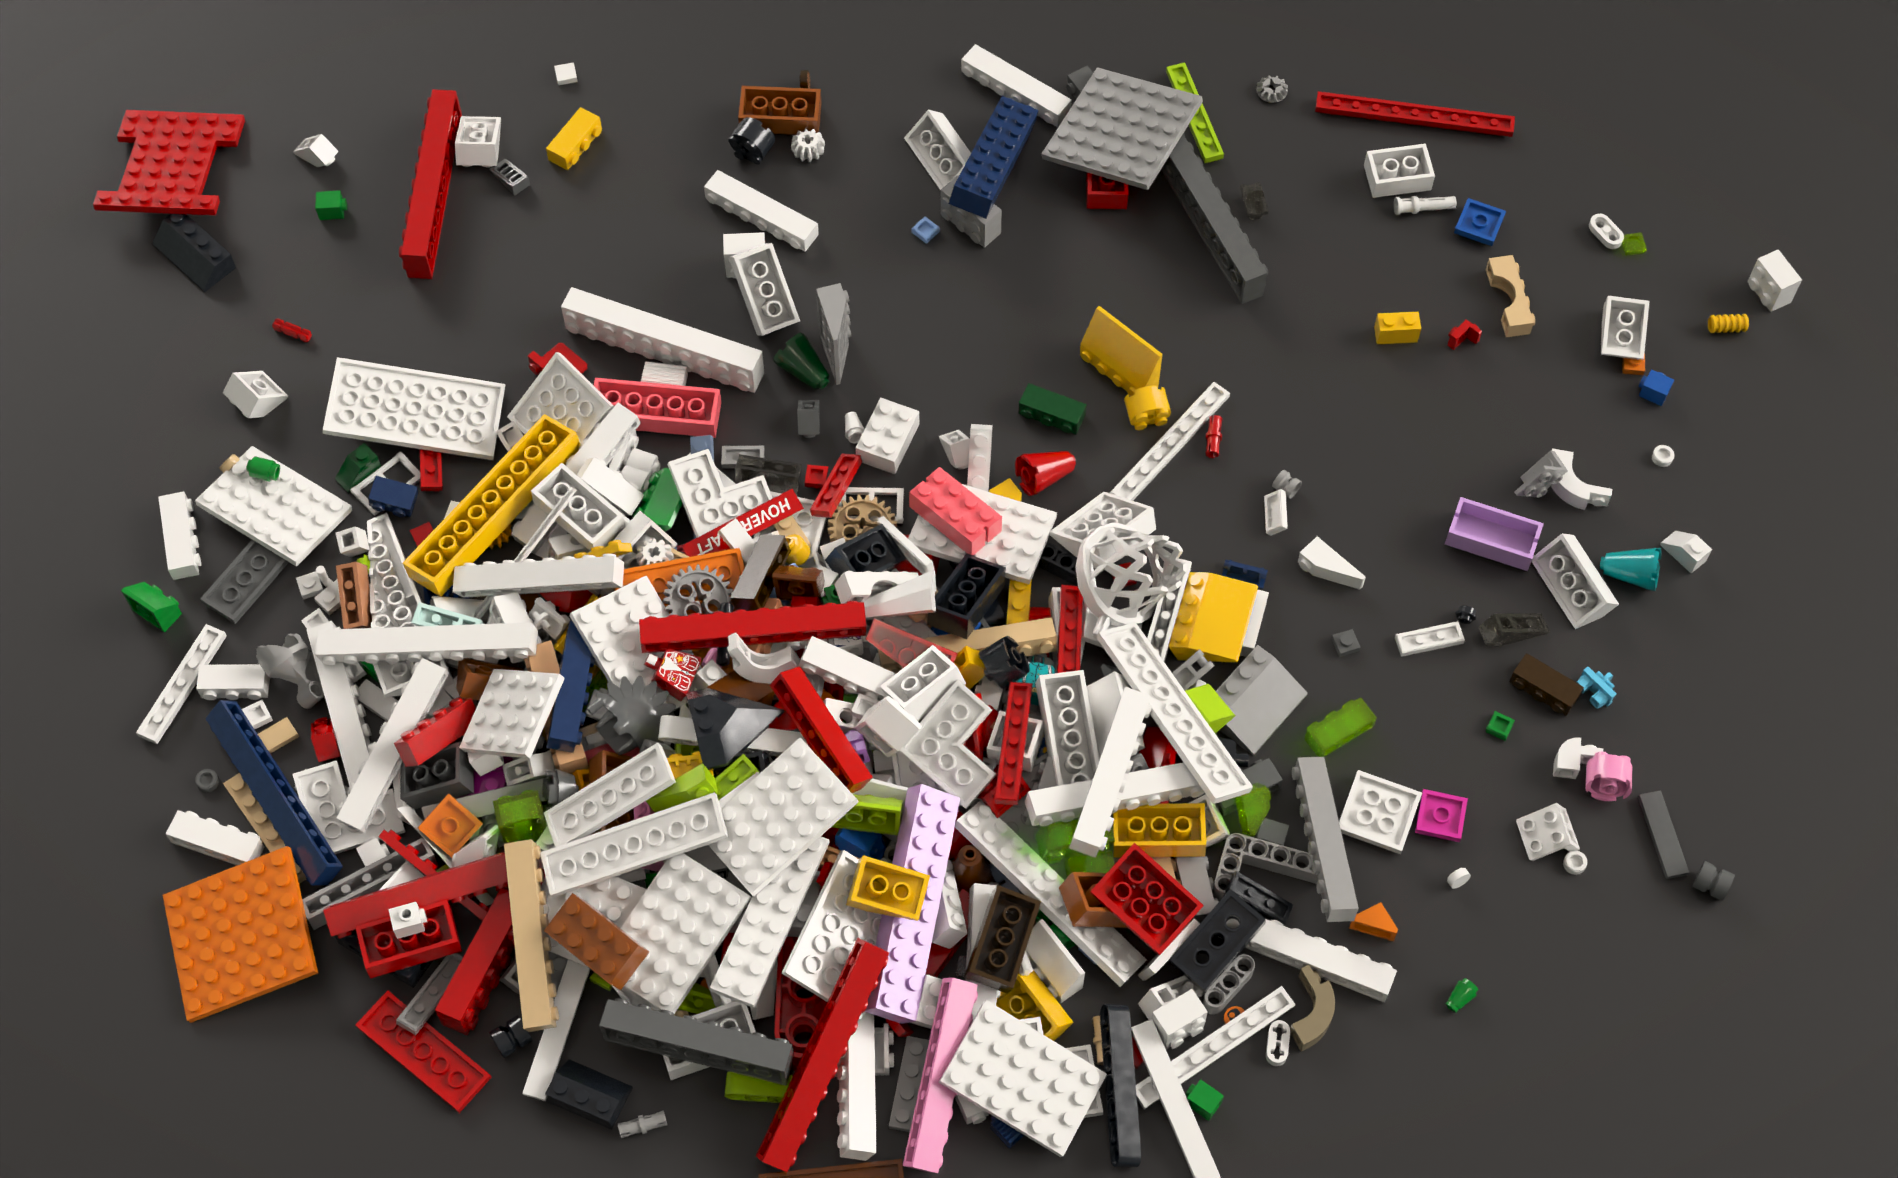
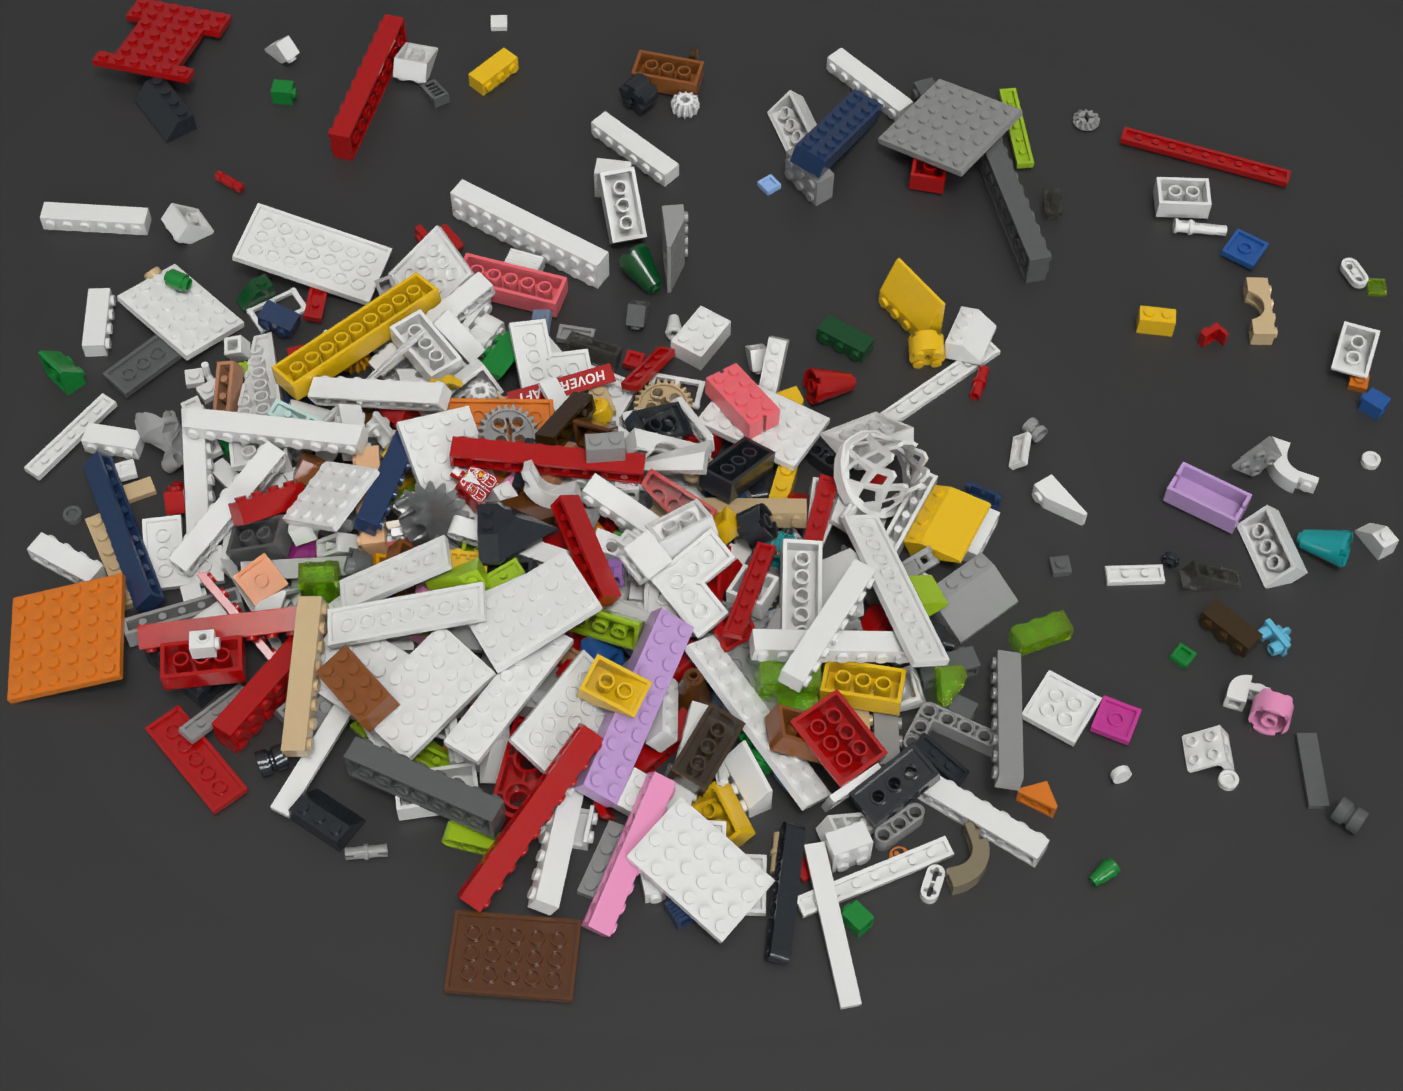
camera: 10 degrees right, 5 degrees down
(143, 404) = (95, 218): none -> white brick
(817, 603) = (605, 447): none -> light grey brick
(1193, 383) = (969, 336): none -> white slope

